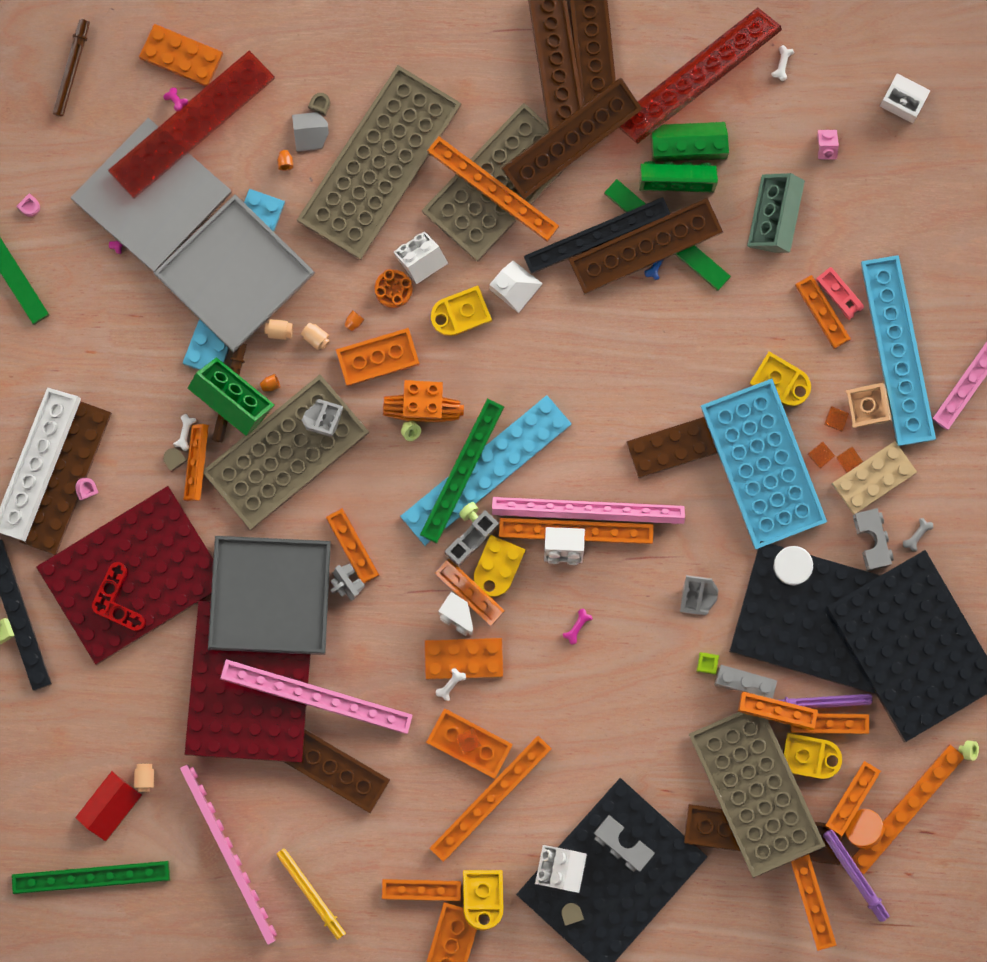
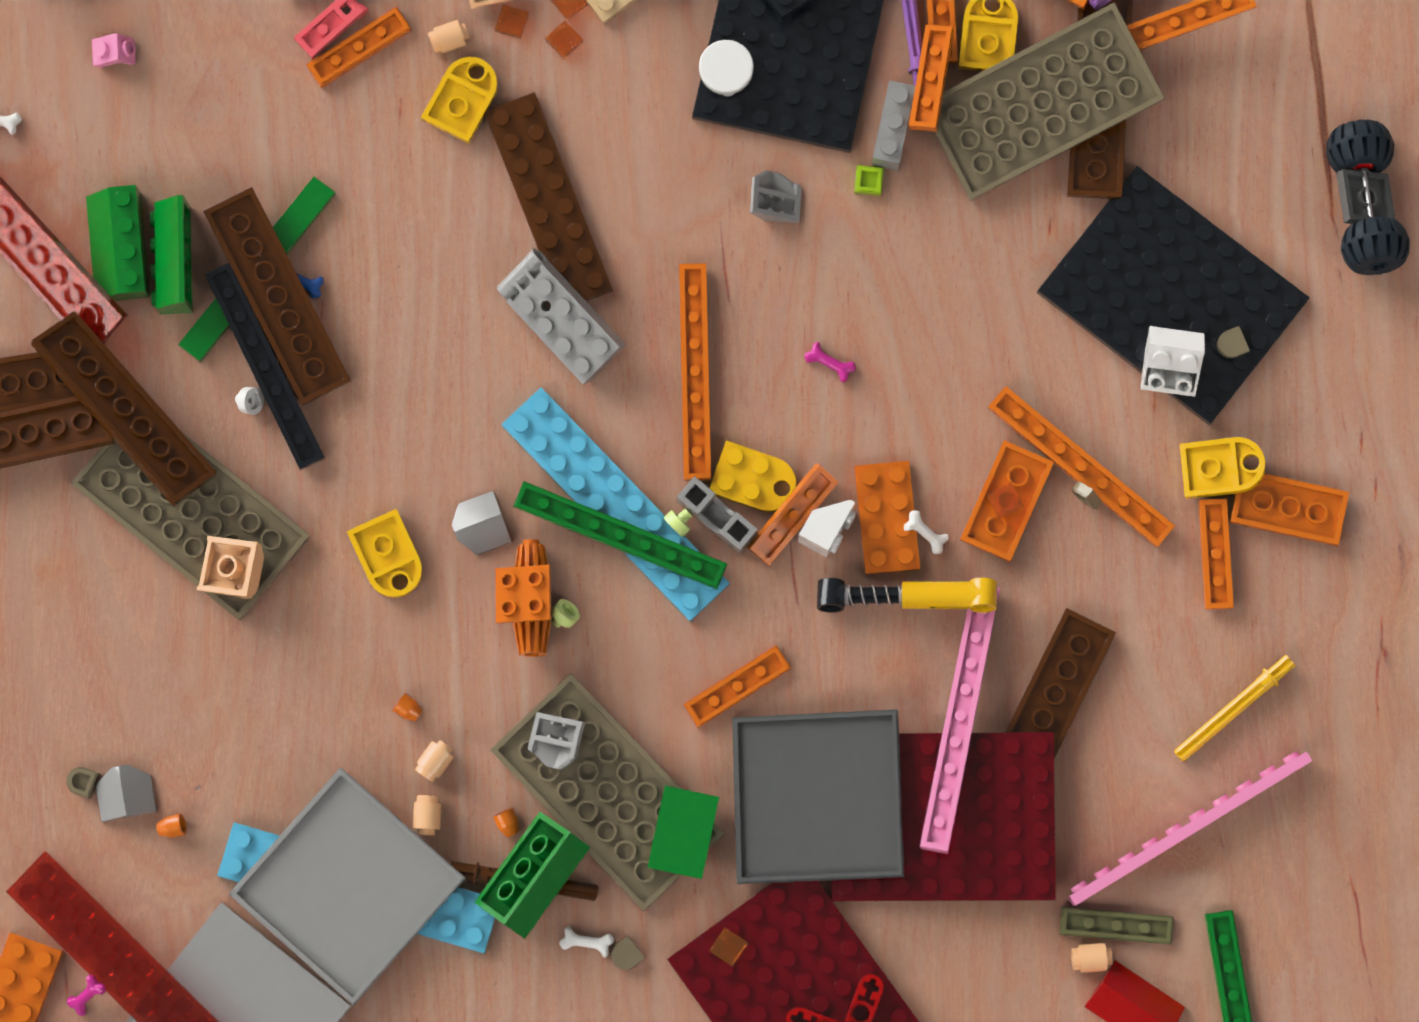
camera: 90 degrees left, 0 degrees up
(165, 797) = (1116, 925): none -> olive tile
(171, 526) = (728, 947): none -> clear orange tile
(196, 462) = (631, 920): orange tile -> none
(252, 501) = (683, 832): none -> green tile
(343, 584) = (792, 694): light grey hips -> none
(377, 357) = (459, 669): orange plate -> none
(379, 162) = (168, 687): dark tan plate -> none
(393, 288) = (356, 654): orange tile -> none
(402, 712) = (977, 595): none -> piece
(420, 257) = (308, 617): white slope -> none
(456, 205) = (231, 567): none -> light nougat slope
(468, 801) = (1086, 495): none -> dark tan tile
(478, 377) = (480, 524): none -> light grey slope
(493, 189) = (203, 517): orange plate -> none
(515, 286) = (343, 479): white slope -> none
(564, 545) = (719, 384): white slope -> none
(573, 225) = (250, 400): none -> white tile
(588, 510) = (664, 356): bright pink plate -> none
(608, 834) = (1118, 297): light grey arch -> none
(612, 442) = (570, 326): none -> light grey hinge
(763, 463) = (583, 116): medium azure plate -> none
(776, 212) = (218, 117): sand green slope -> none
(826, 373) = (448, 37): none -> light nougat brick

